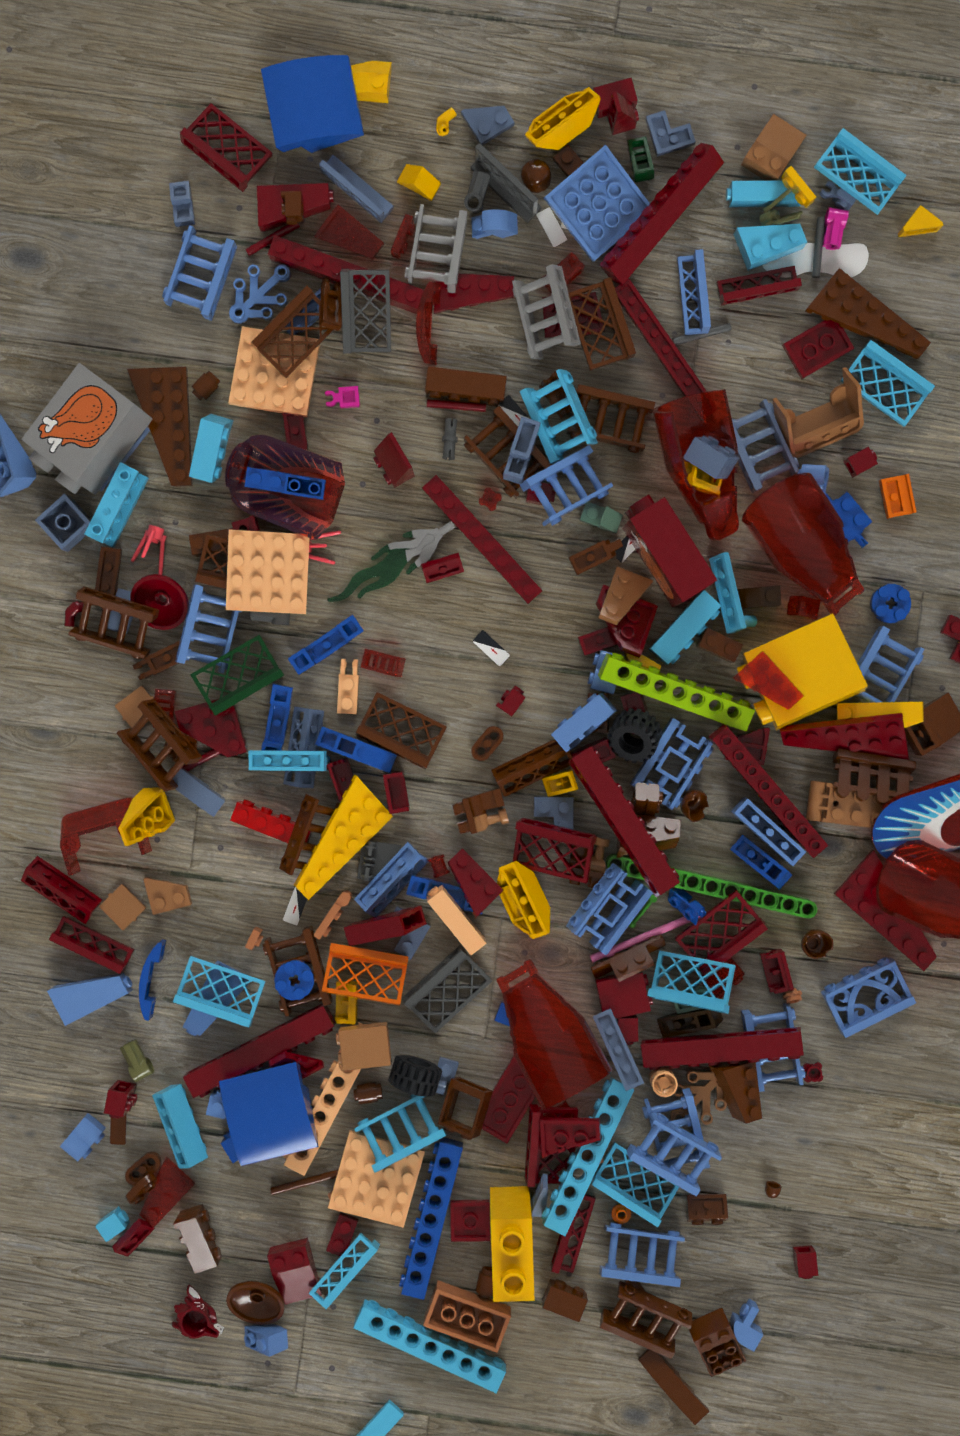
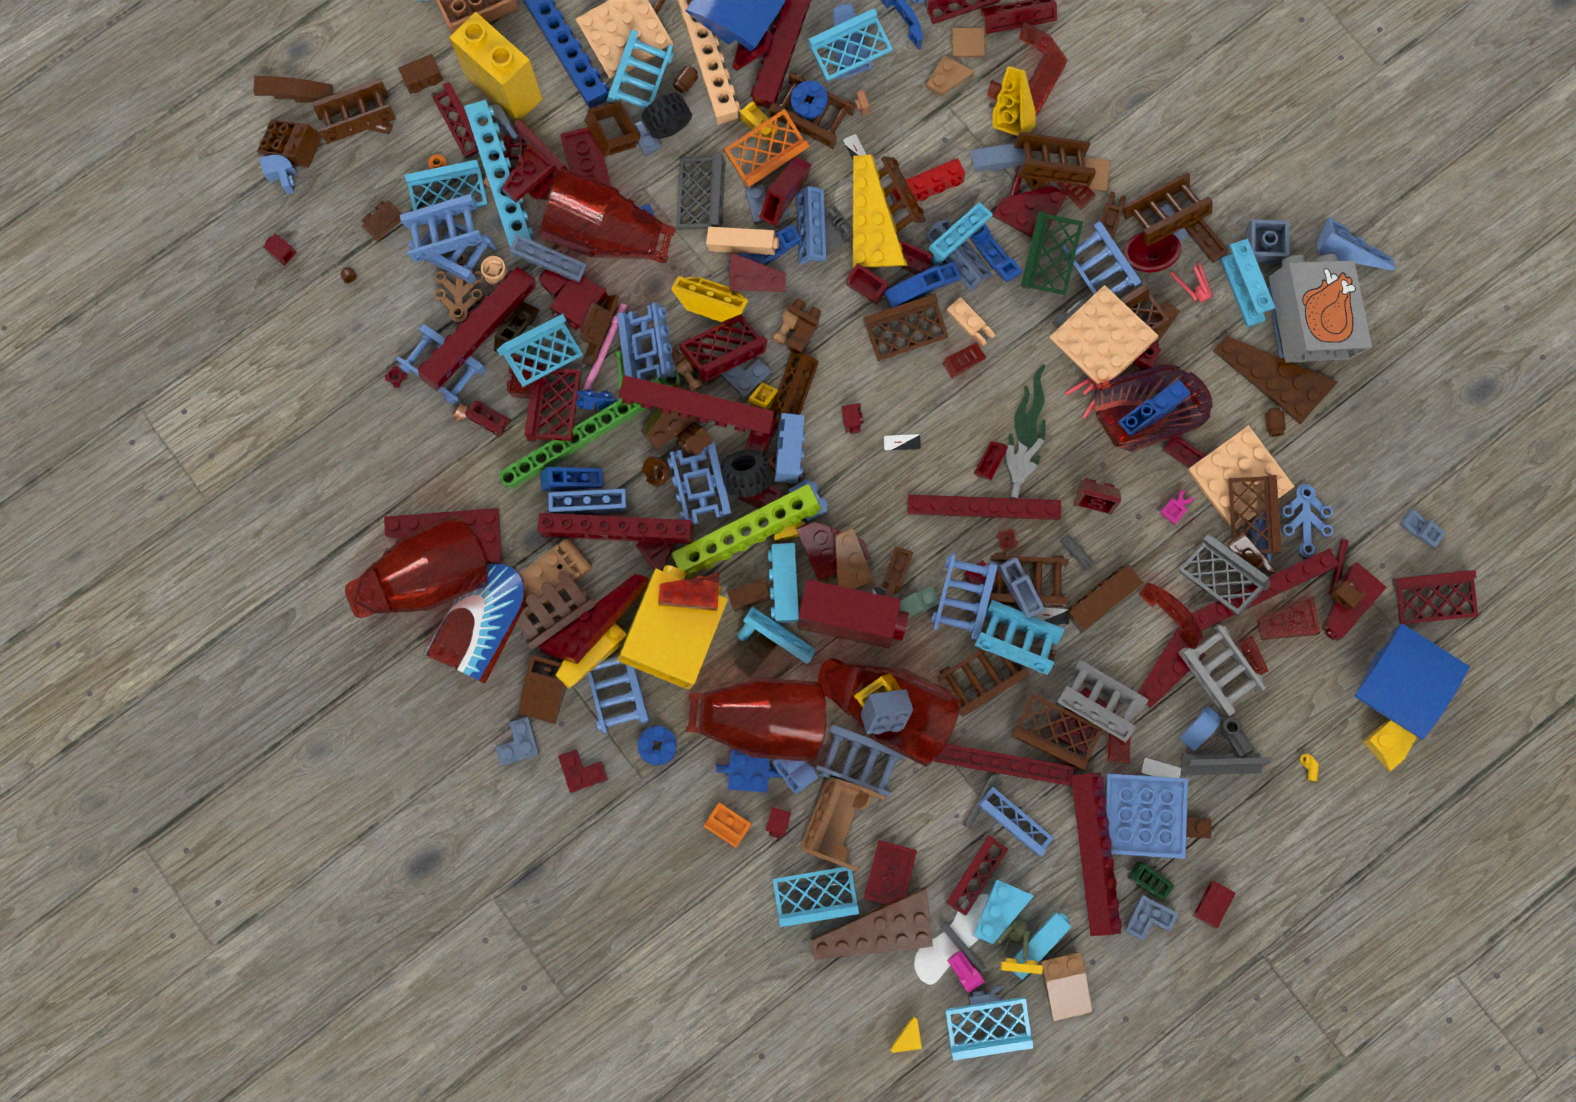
camera: 140 degrees right, 10 degrees down
(70, 613) = (1200, 188): dark red arm -> none
(210, 447) = (1228, 385): medium azure wedge -> none
(220, 271) = (1349, 509): medium blue fence -> none
(326, 645) = (1014, 332): blue slope -> none
(334, 913) = (826, 168): nougat hinge -> none
(356, 188) = (1320, 658): sand blue fence -> none
(364, 1046) = (719, 101): medium nougat brick -> none
(419, 181) = (1283, 707): yellow slope -> none
(438, 865) = (789, 265): clear red bush -> none
(456, 405) = (1096, 579): dark red bar -> none
(470, 1220) = (542, 61): dark red plate -> none
(487, 122) = (1281, 797): sand blue wing -> none
(487, 743) = (839, 376): reddish brown plate -> none
(536, 175) = (1209, 794): reddish brown hair -> none
(564, 120) = (1231, 848): yellow wedge -> none
(596, 641) = (836, 514): dark red plate -> none
(621, 114) = (1196, 894): dark red slope -> none
(649, 1274) = (380, 140): medium blue fence -> none
(740, 1089) = (436, 314): reddish brown wedge -> none
(803, 607) = (716, 679): clear red bracket -> none
(816, 943) = (478, 461): reddish brown hair -> none
(895, 1002) = (398, 436): medium blue fence -> none

